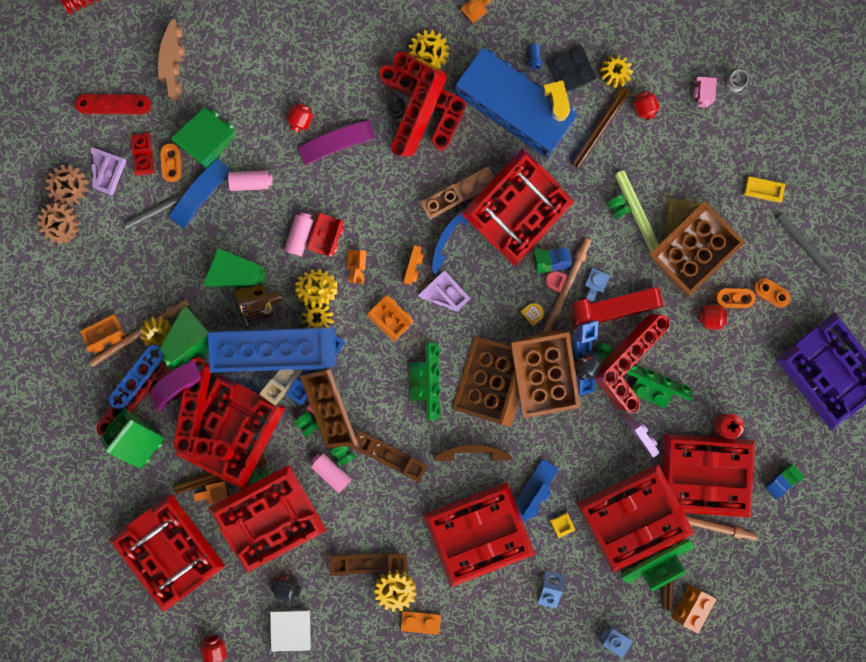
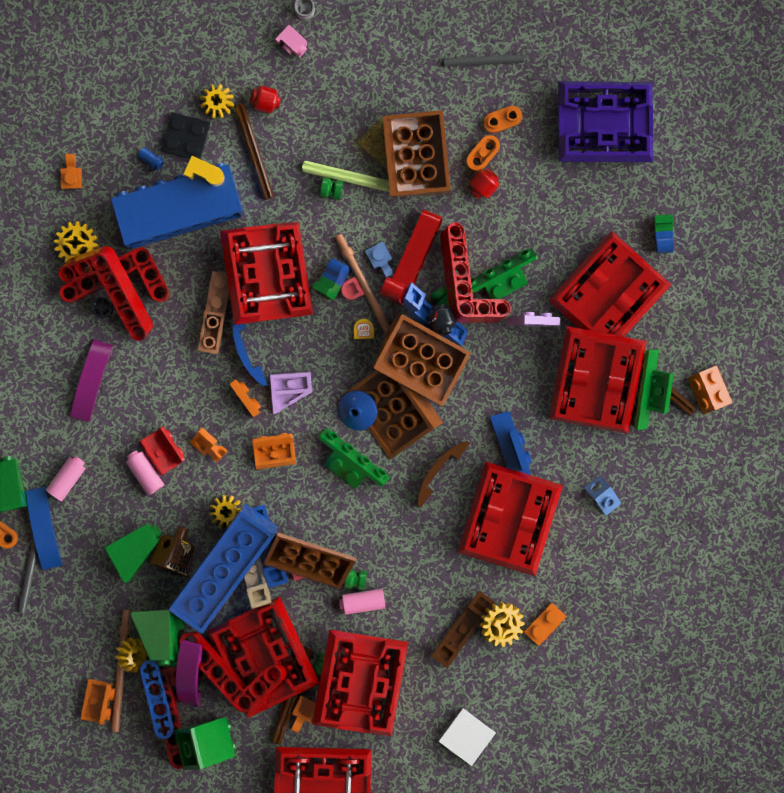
camera: 50 degrees left, 0 degrees up
(286, 588) = (429, 713): black head -> none
(299, 117) = (45, 395): red head -> none
(305, 419) = (302, 590): green wheel -> none
(316, 288) = (200, 493): yellow gear -> none
(389, 456) = (388, 541): reddish brown slope -> none
(476, 360) = (363, 404): none -> blue dish
(562, 525) = (557, 443): yellow tile -> none
(615, 641) = (685, 475): medium blue brick -> none
(736, 426) = (590, 243): red piece -> none
(736, 532) = (675, 306): nougat bar -> none
(764, 189) = (412, 57): yellow tile -> none

